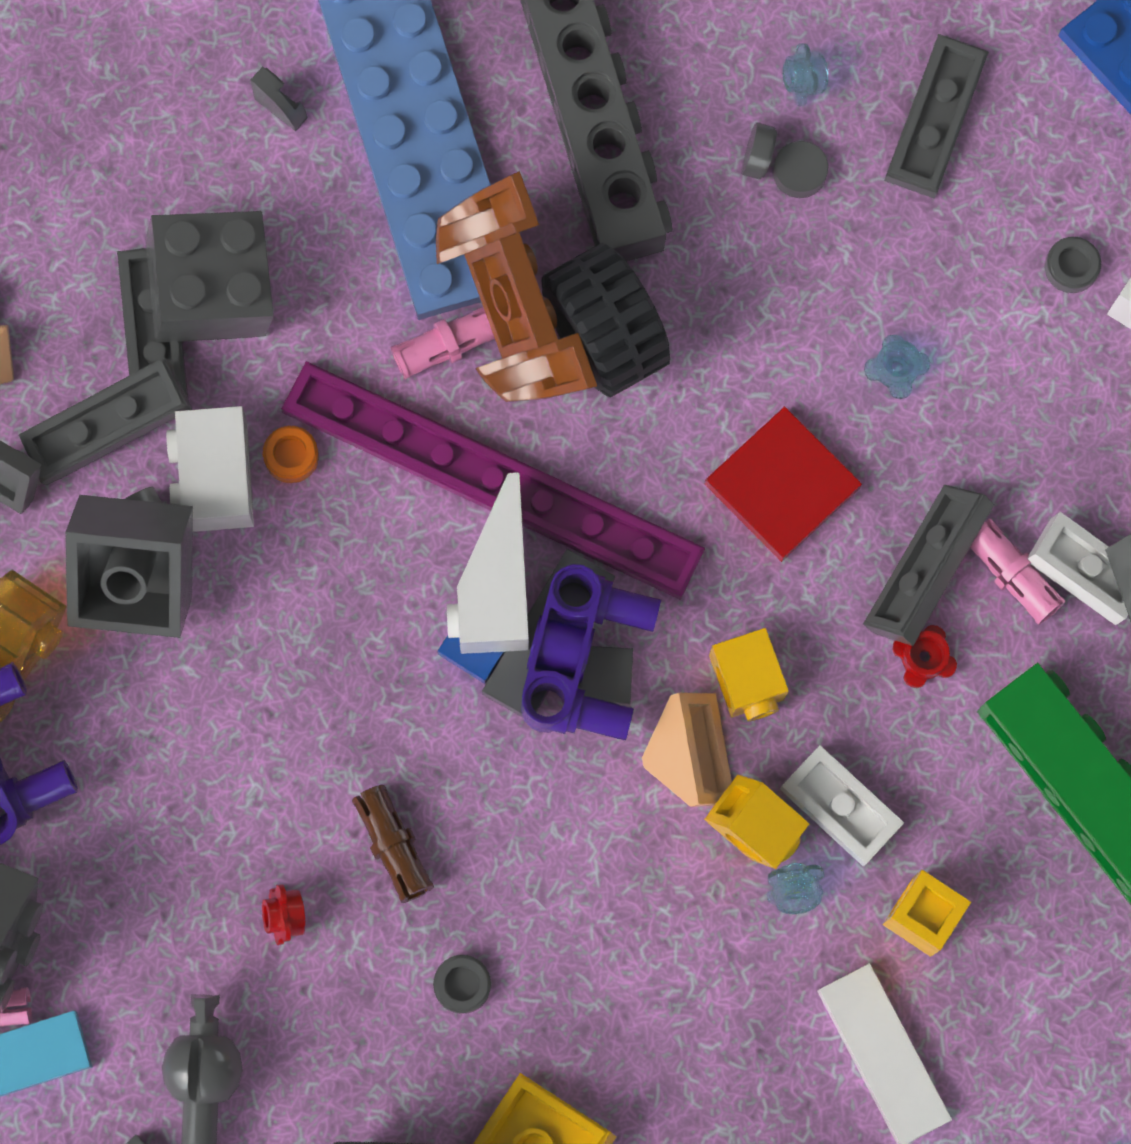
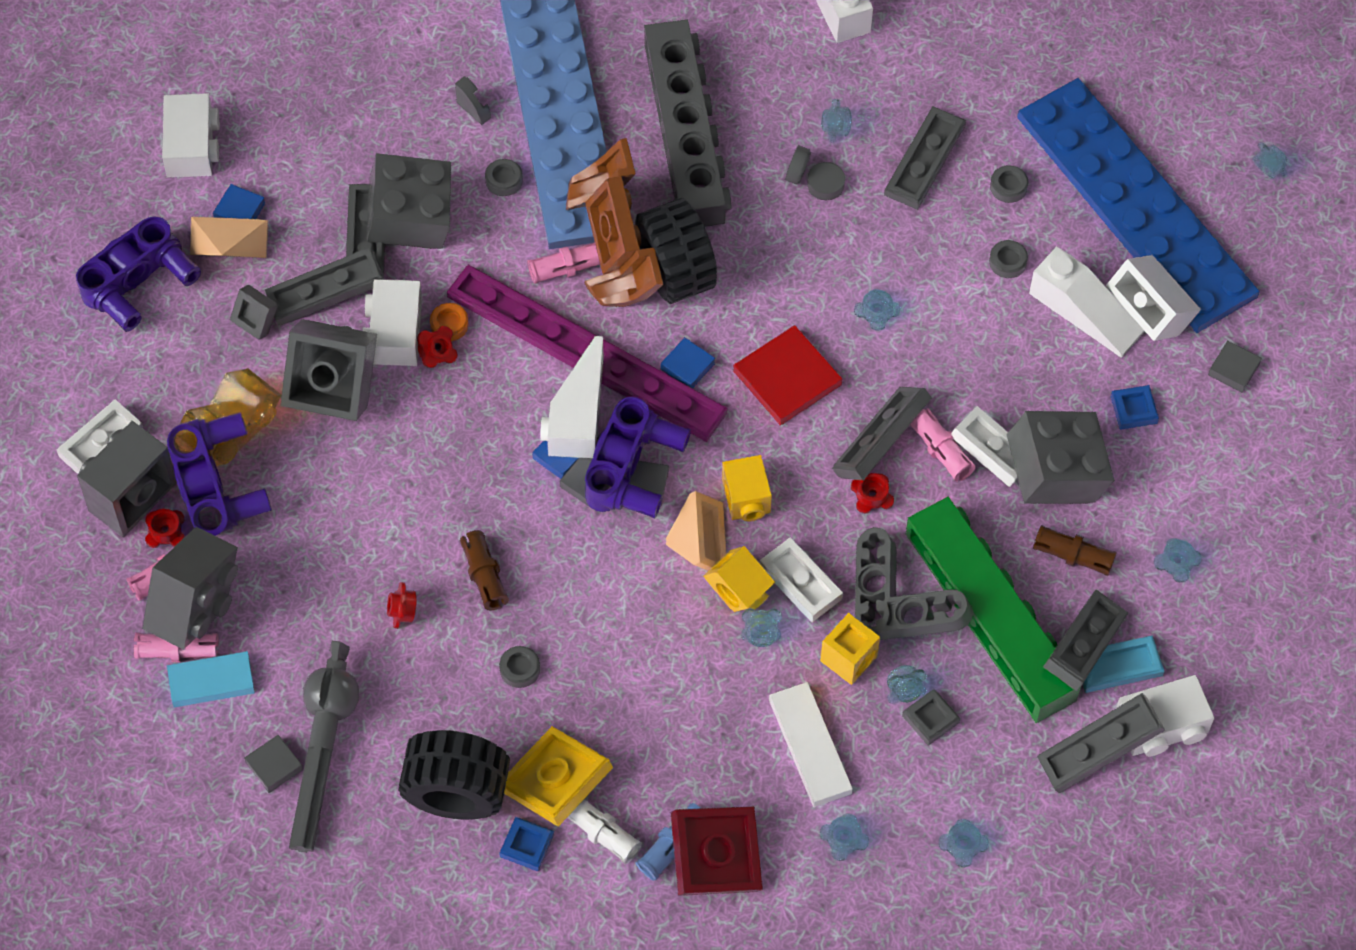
camera: 10 degrees right, 15 degrees down
(264, 496) = (427, 351): none -> red plate
(338, 214) = (503, 177): none -> dark grey tile
(639, 482) = (687, 363): none -> blue tile
(981, 839) = (893, 607): none -> dark grey beam
(1007, 952) = (906, 684): none -> clear light blue plate
(1046, 992) = (931, 717): none -> dark grey tile
(1060, 145) = (1009, 184): none -> dark grey tile

